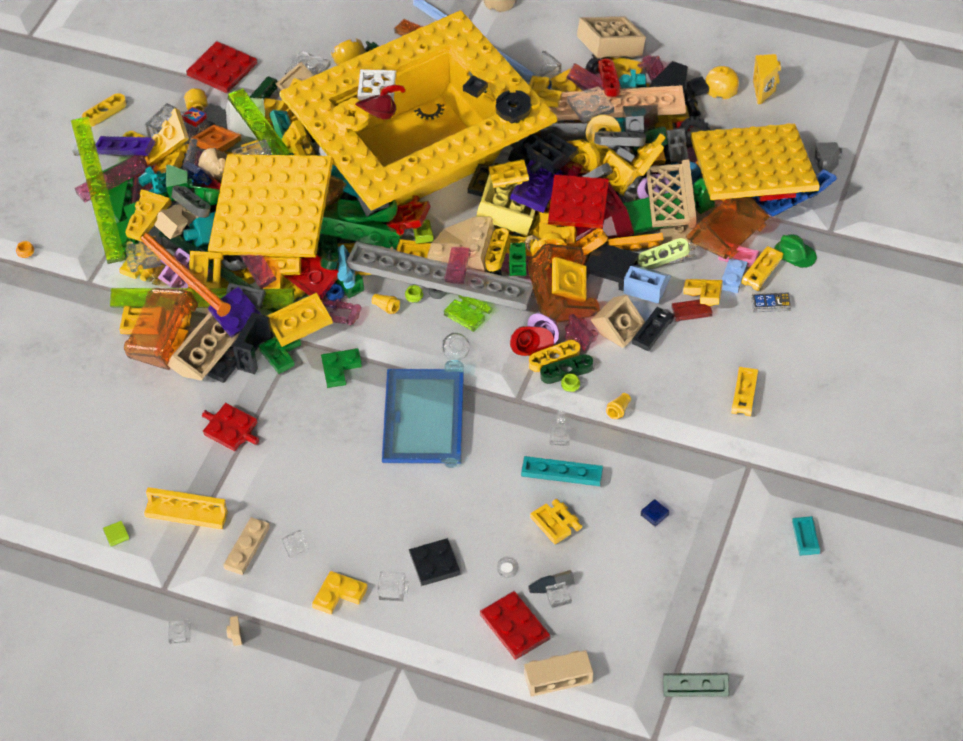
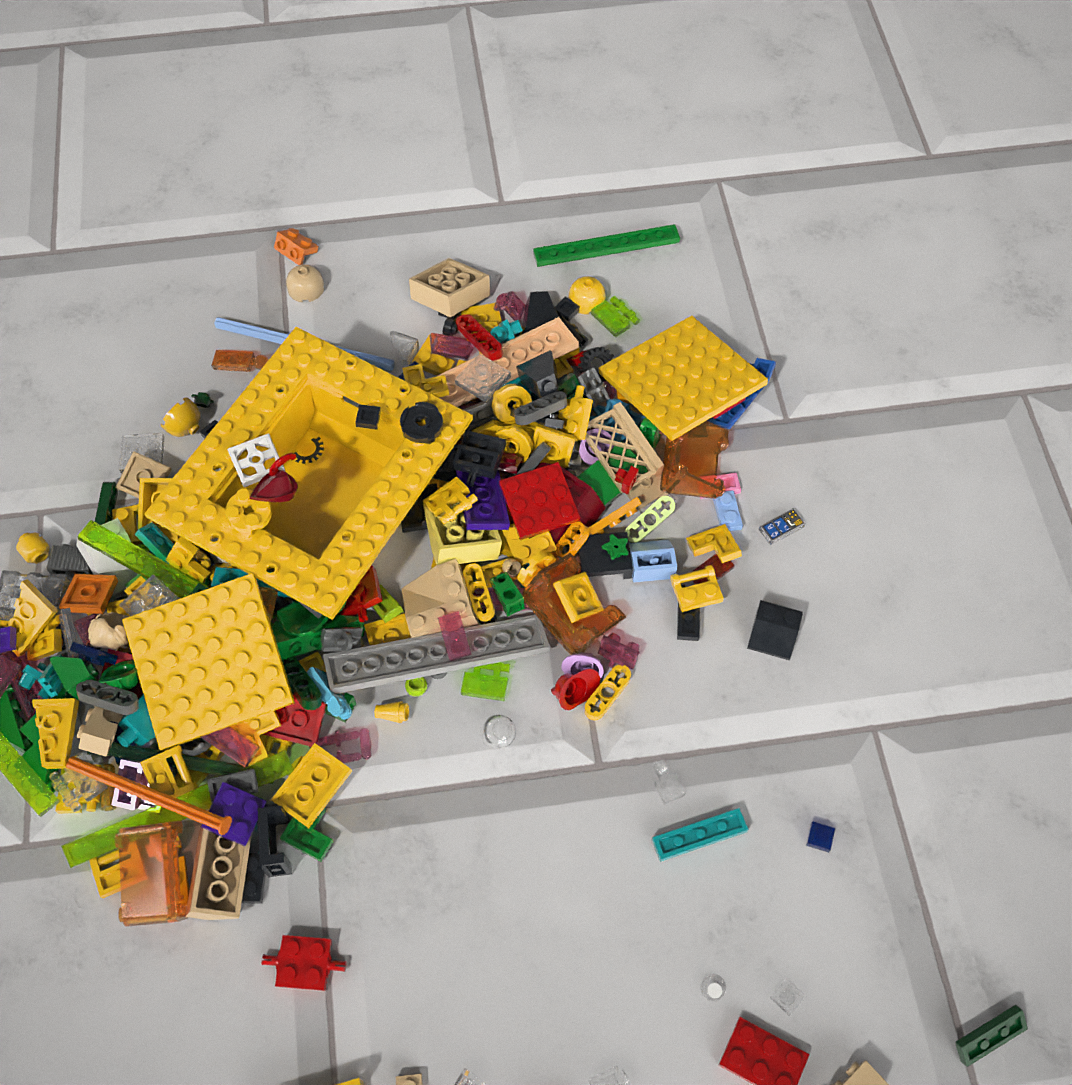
camera: 30 degrees left, 10 degrees up
(194, 117) = (47, 576): tile -> none
(221, 67) = (39, 490): red plate -> none
(335, 292) = (329, 718): blue plate -> none
(336, 363) = (378, 817): green plate -> none
(375, 235) = (341, 638): none -> dark grey hips
(424, 415) = (514, 837): clear light blue door -> none
(434, 562) = (632, 1023): black plate -> none
(539, 585) = (776, 977): piece -> none
(552, 524) = (728, 908): yellow plate -> none
(557, 376) = (614, 709): dark green beam -> none
(570, 383) = (644, 718): lime plate -> none
(618, 320) = (650, 619): tan slope -> none
(618, 406) = (710, 724): yellow cone -> none
(621, 263) = (616, 552): none -> green plate
(660, 215) = (626, 478): none -> red tile
(668, 317) = (699, 594): none -> yellow plate
(713, 366) = (775, 630): none -> black slope
(730, 105) = (611, 319): none -> clear neon green plate
(744, 390) = (821, 644): yellow plate -> none
(750, 49) = (606, 245): none -> green plate
(762, 268) = (751, 490): yellow plate -> none
(765, 76) = (628, 272): yellow slope -> none
(796, 251) = (768, 457): green piece -> none
(806, 536) = (979, 787): teal tile -> none
(827, 156) = (740, 338): dark grey slope -> none

